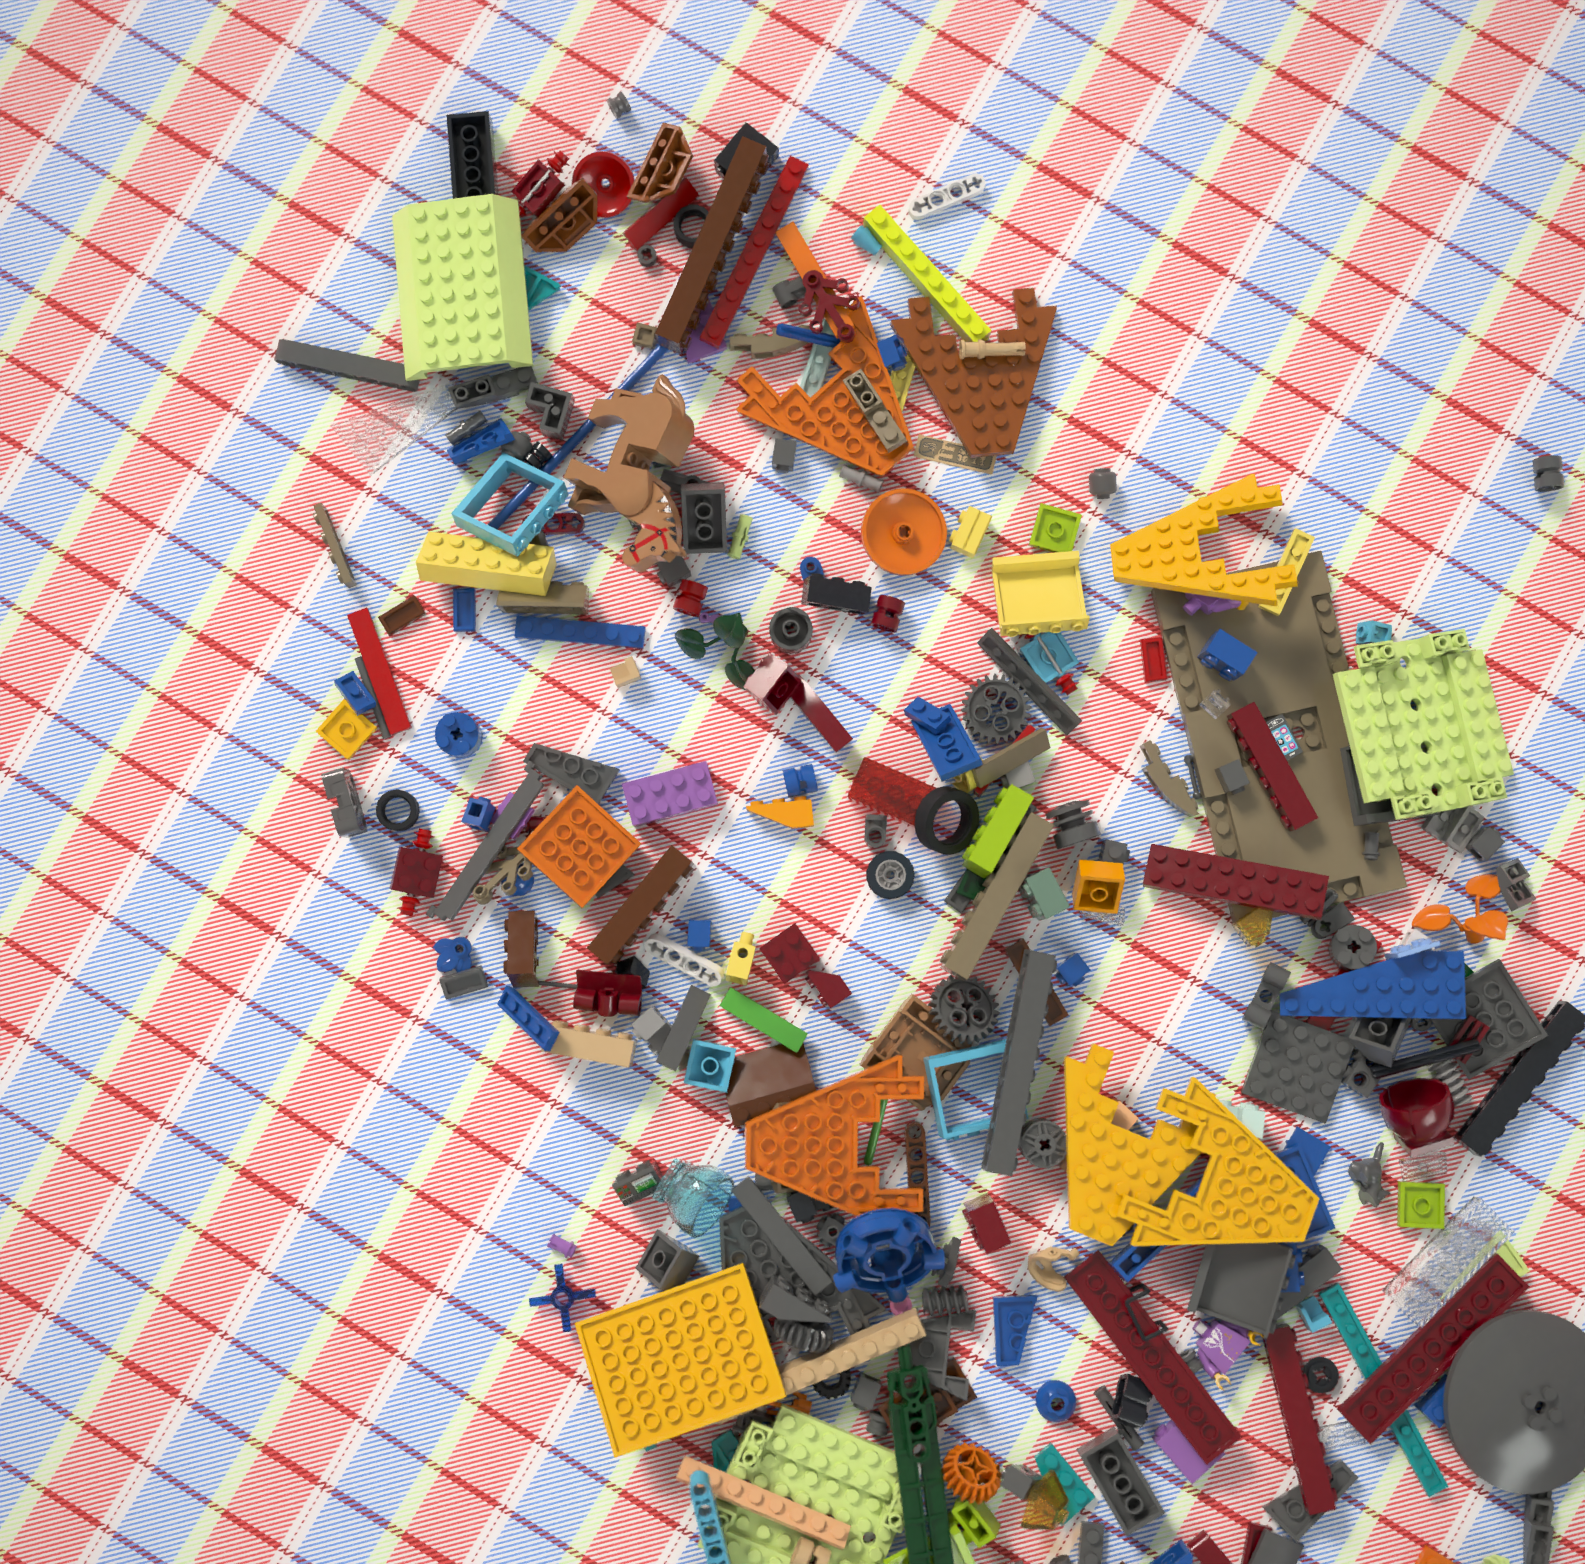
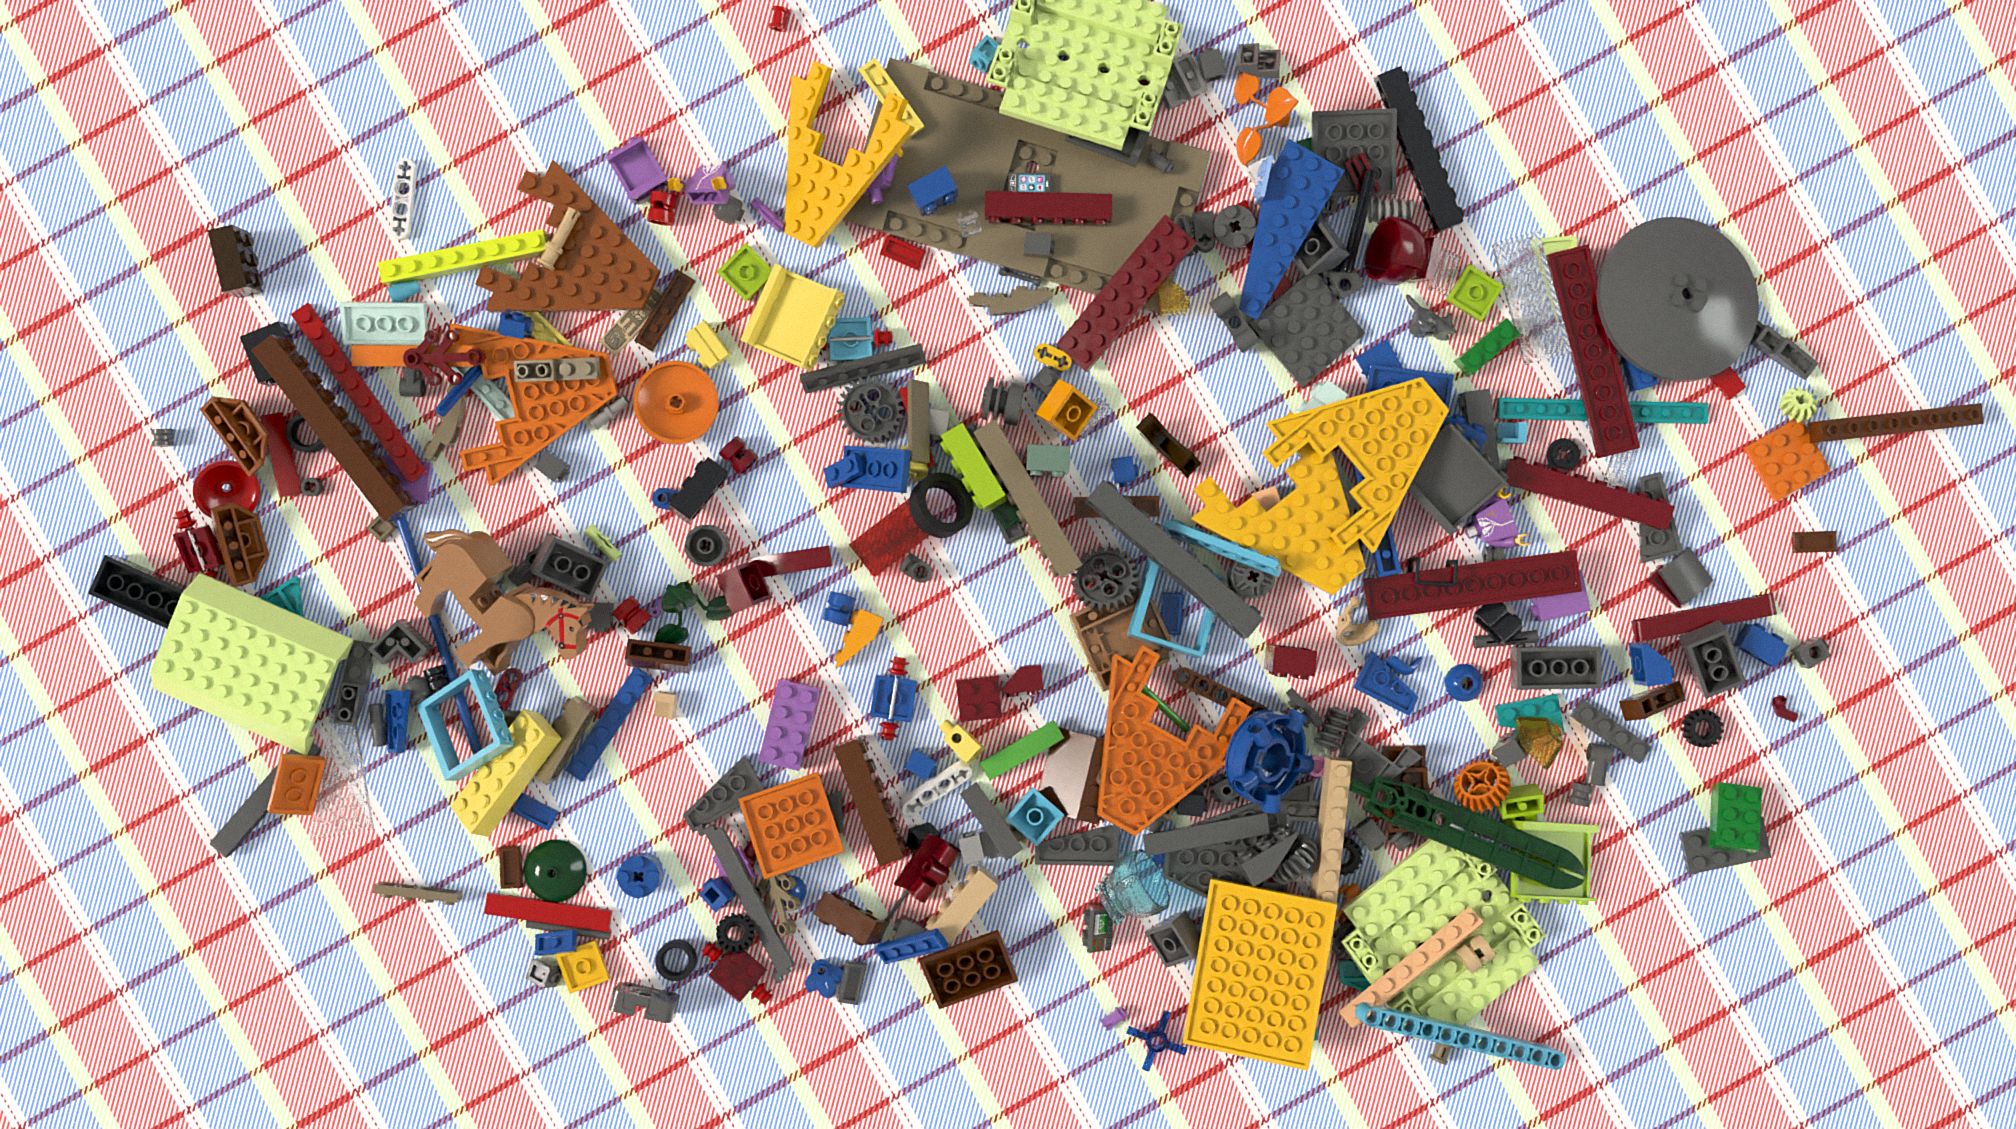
camera: 65 degrees left, 5 degrees up
(320, 698) = (543, 974): none -> bracket
(374, 385) = (296, 784): none -> orange plate
(432, 665) = (567, 863): none -> dark green dish
(440, 856) = (731, 921): none -> black tyre
(535, 1083) = (968, 969): none -> reddish brown slope
(542, 1004) = (907, 927): none -> dark grey brick
(666, 642) = (658, 656): none -> reddish brown brick
(706, 1131) = (1085, 848): none -> dark grey wing
(745, 875) = (893, 698): none -> blue plate
(810, 83) = (235, 261): none -> dark brown brick
(828, 238) = (383, 323): none -> light aqua plate
(901, 868) = (948, 577): black wheel -> none
(967, 1088) = (1172, 612): none -> blue tile
(979, 477) = (665, 310): none -> reddish brown tile
(1036, 1333) = (1400, 667): none -> blue hair
(1054, 1096) = (1227, 549): none -> medium azure plate
(1068, 425) = (659, 214): none -> red wheel
(1091, 384) = (637, 169): none -> medium lavender panel
(1113, 452) = (708, 185): none -> medium lavender torso
(1117, 520) = (767, 214): none -> medium lavender axle
(1117, 997) = (1167, 446): none -> dark brown arch
(1142, 846) = (1055, 353): none -> yellow beam
(1297, 434) = (779, 18): none -> red bush
(1378, 1245) = (1486, 347): none -> green brick
(1478, 1494) = (1728, 382): none -> red tile

